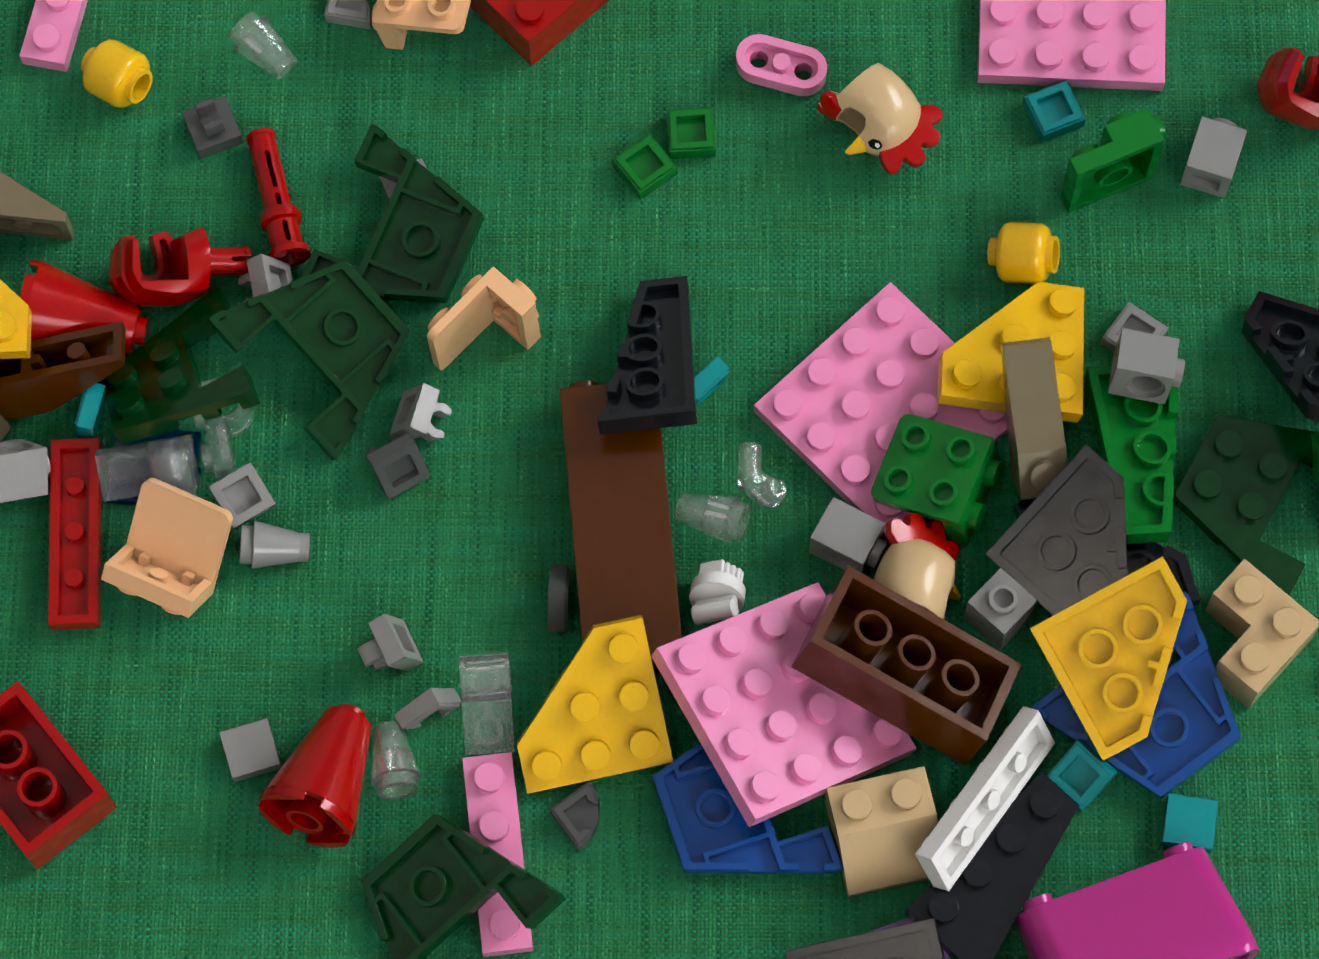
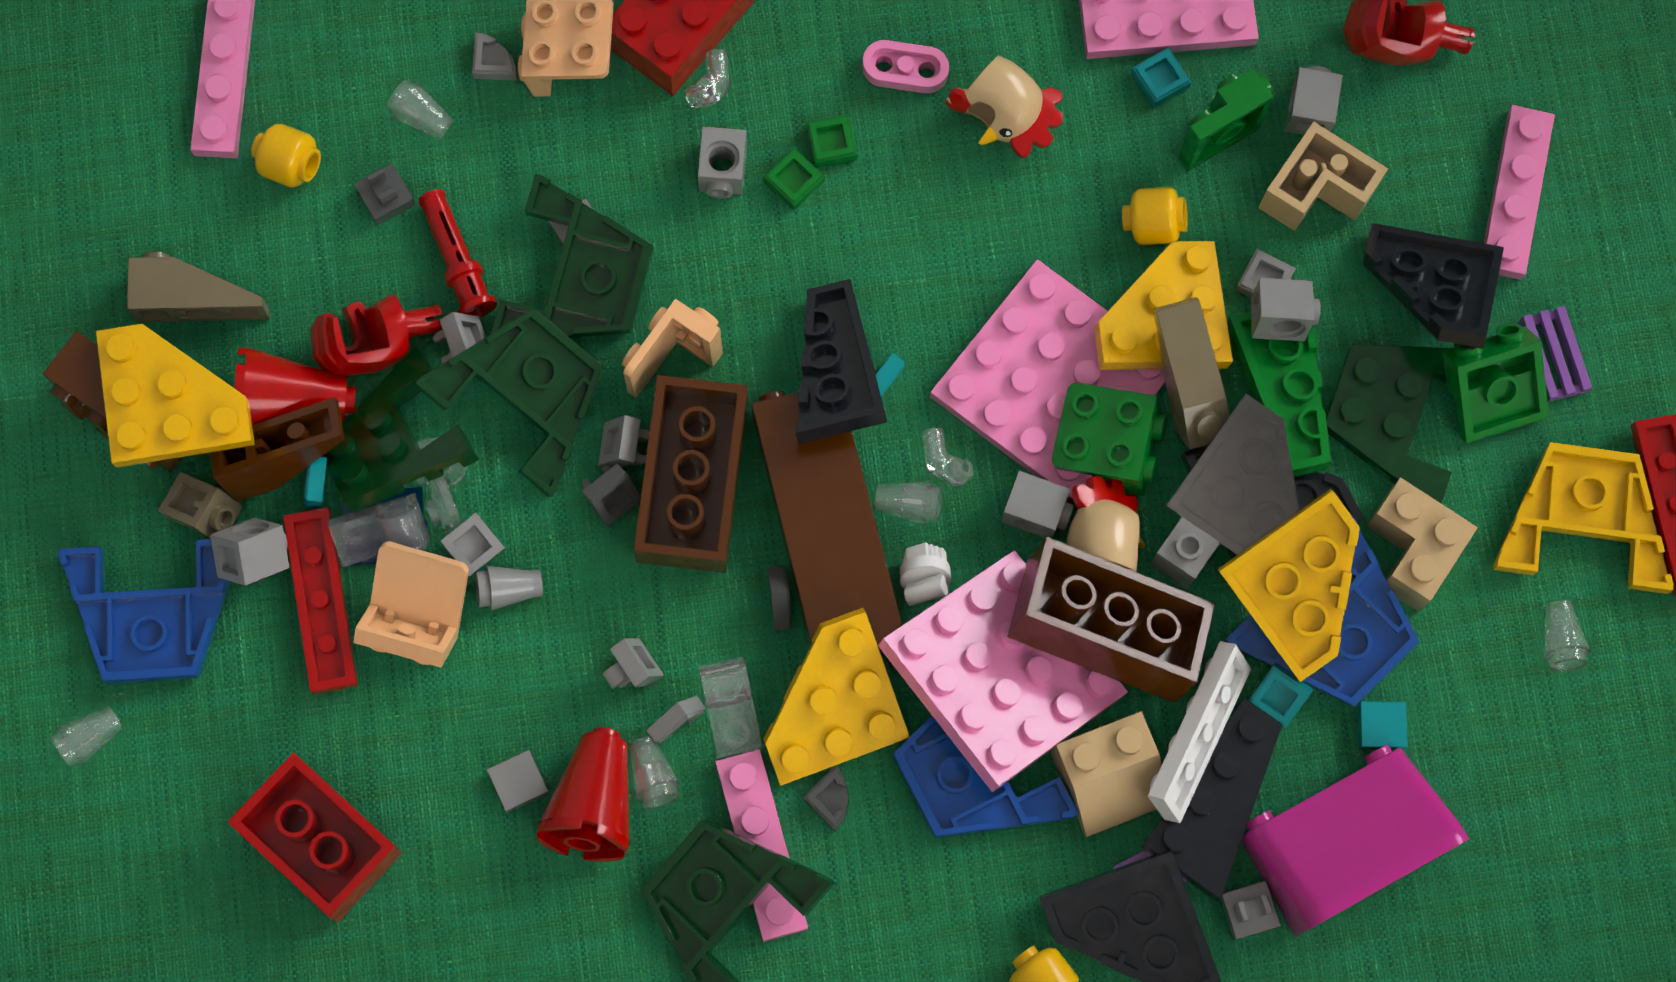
camera: 15 degrees left, 5 degrees up
(484, 454) = (691, 474): none -> reddish brown brick
(575, 58) = (713, 84): none -> clear arm
(575, 120) = (722, 144): none -> light grey brick
(1209, 226) = (1322, 169): none -> tan brick

